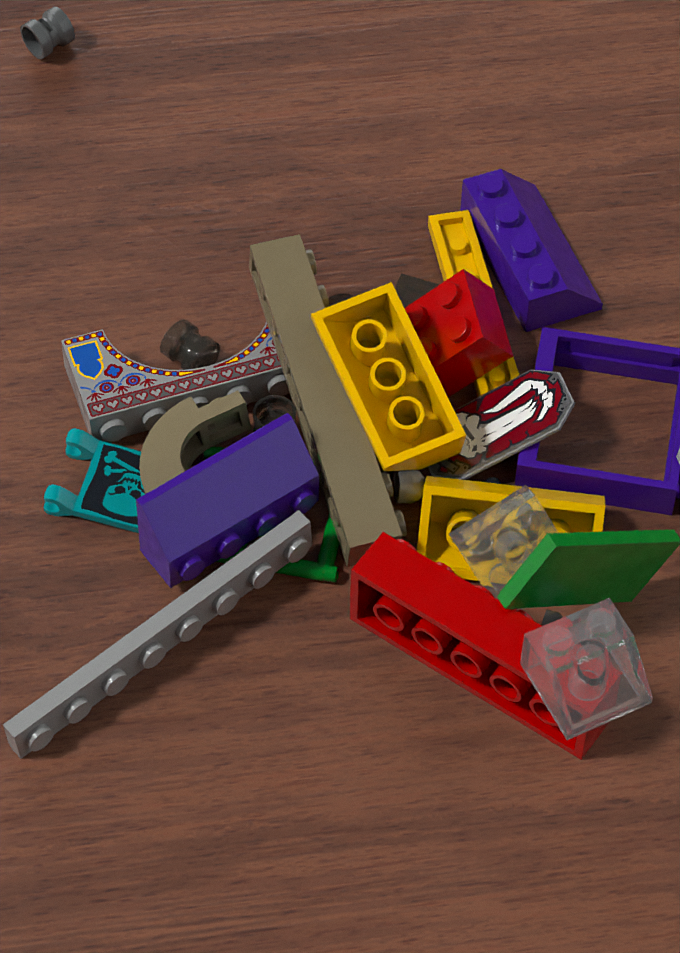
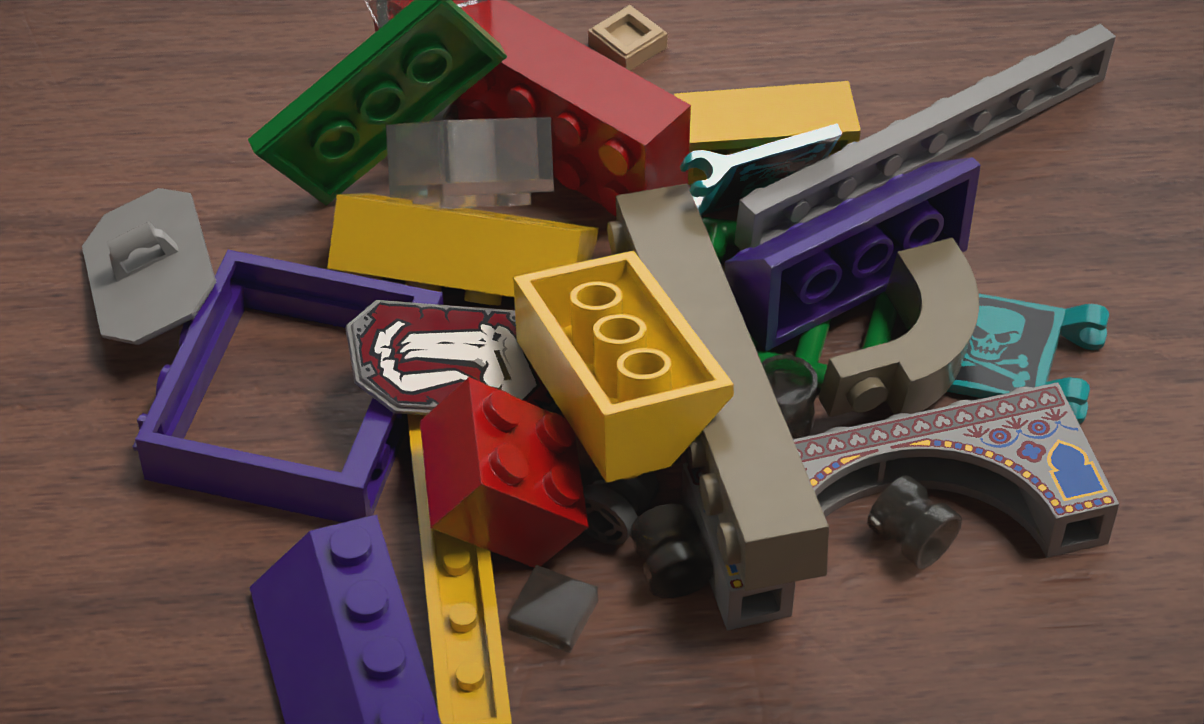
camera: 175 degrees left, 5 degrees down
(291, 644) = (757, 116): none -> yellow brick
(295, 573) = (740, 173): none -> teal flag
(408, 755) = (627, 38): none -> tan tile

